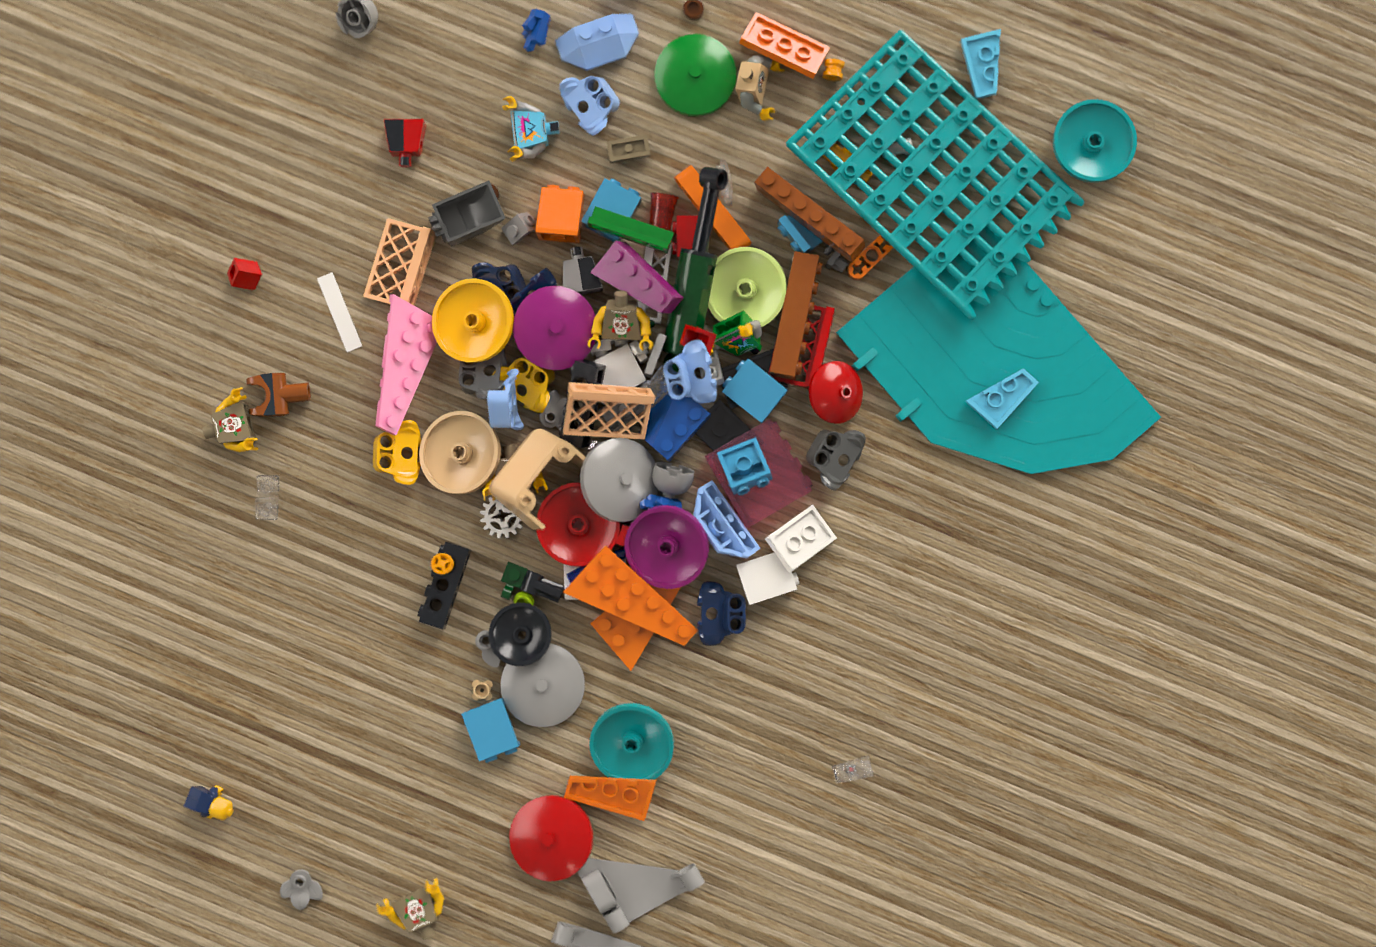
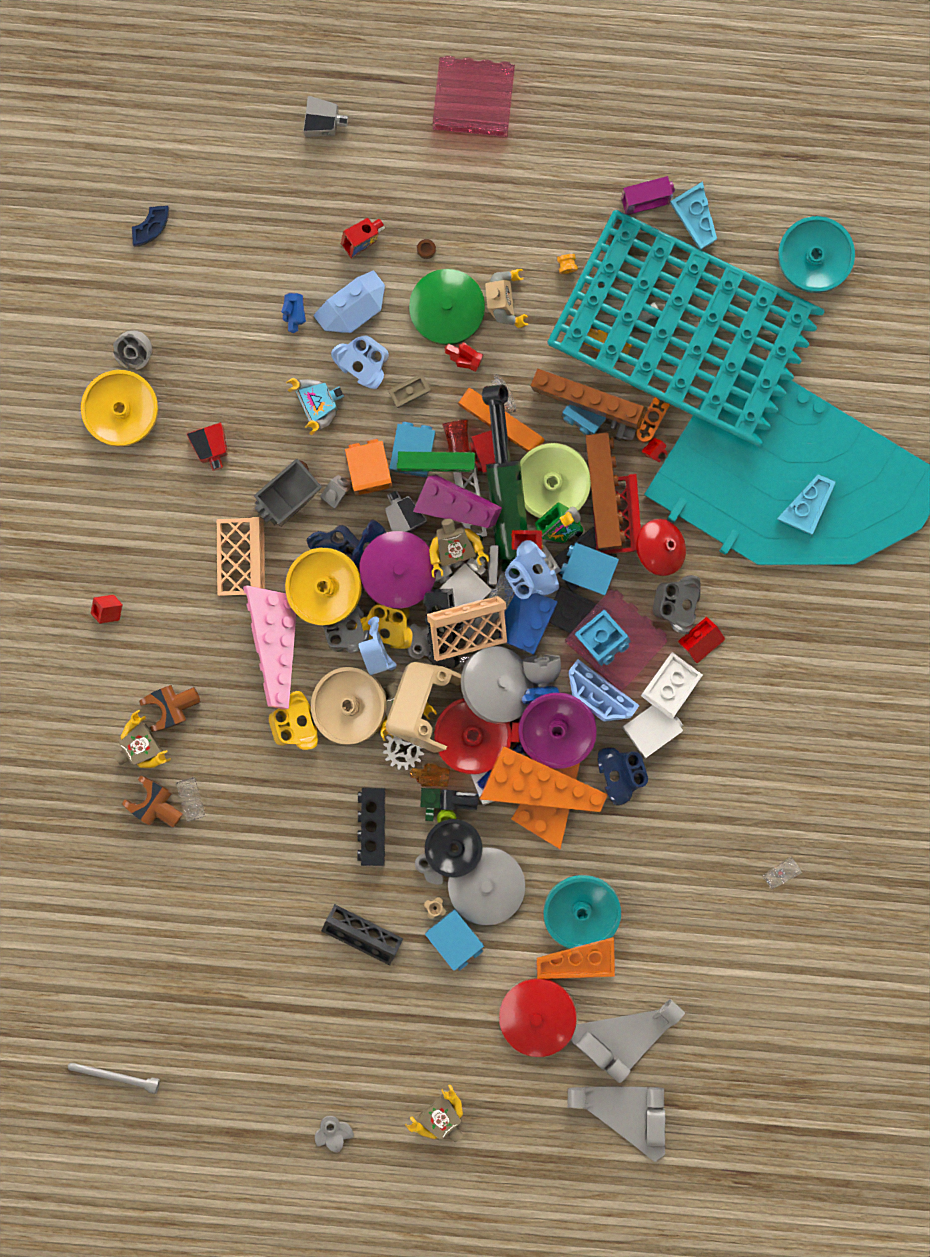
camera: 15 degrees left, 0 degrees up
(129, 778) = (150, 1084): none -> light grey piece
(209, 802) = (228, 1084): piece -> none
(227, 490) = (154, 805): none -> dark orange connector
(324, 71) = (119, 408): none -> yellow dish
(339, 312) = (200, 615): white sticker -> none
(394, 696) = (360, 938): none -> black fence
(438, 564) = (363, 810): light orange wheel -> none
(521, 552) = (431, 775): none -> clear orange rock
(697, 131) = (464, 356): none -> red rock
(784, 45) = (517, 256): plate -> none
(847, 501) = (702, 639): none -> red panel
(861, 289) = (654, 448): none -> red tile
(939, 24) = (647, 195): none -> magenta window

